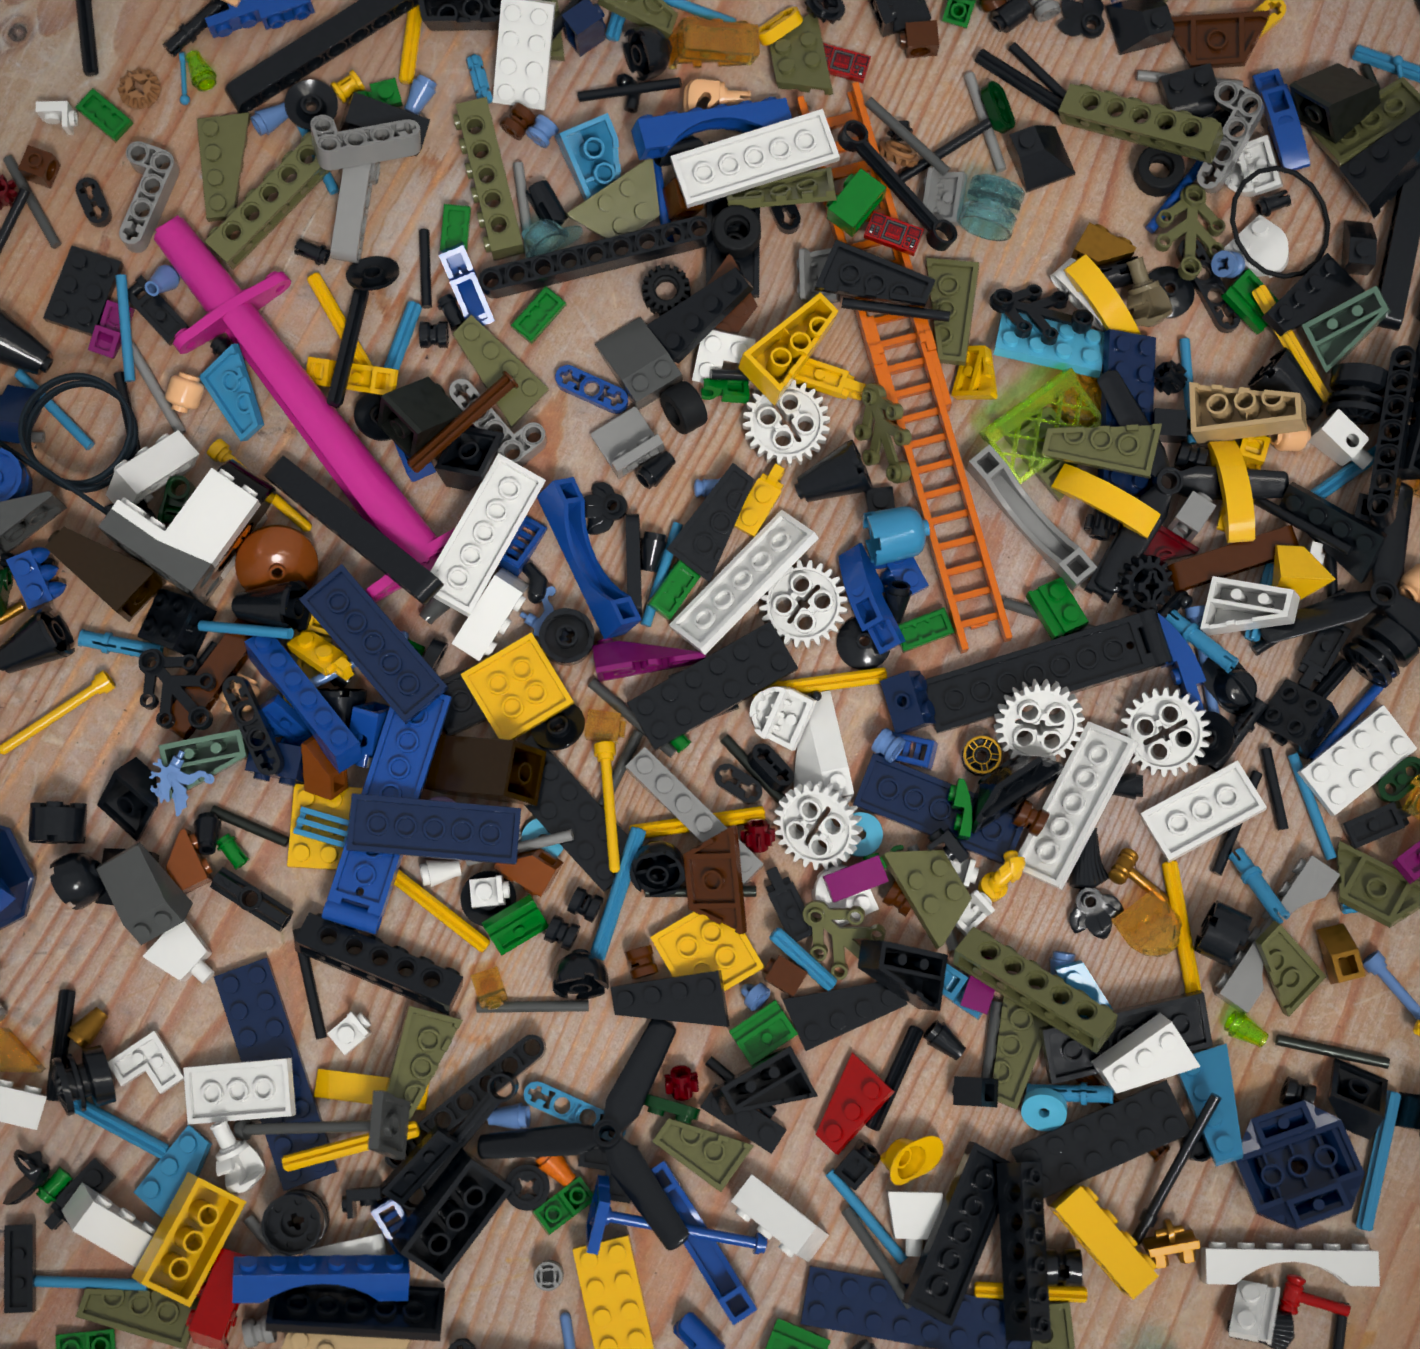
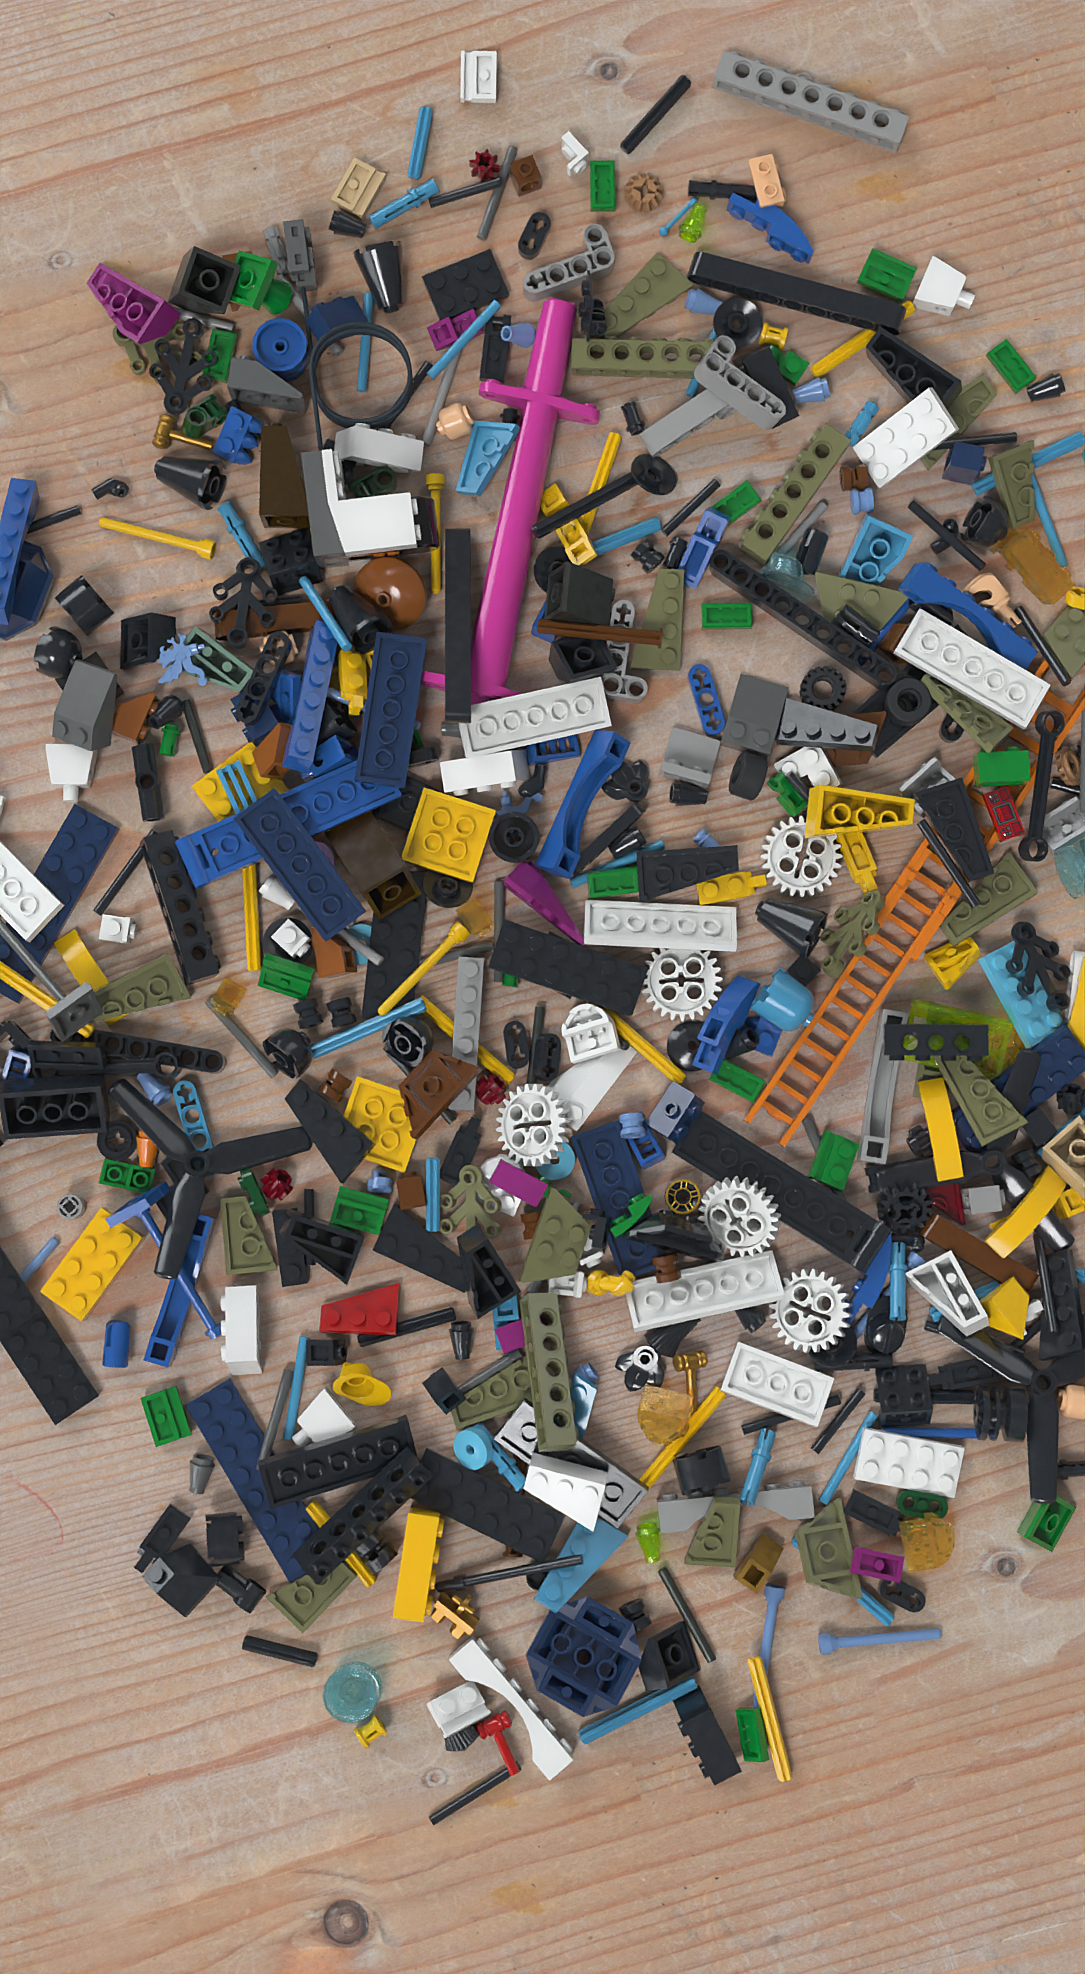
camera: 40 degrees right, 5 degrees up
(195, 207) = (591, 311): none -> black hinge
(639, 218) = (856, 626): none -> black arm
(783, 90) = (1042, 646): none -> black bar
(1056, 404) = (976, 1034): none -> black brick

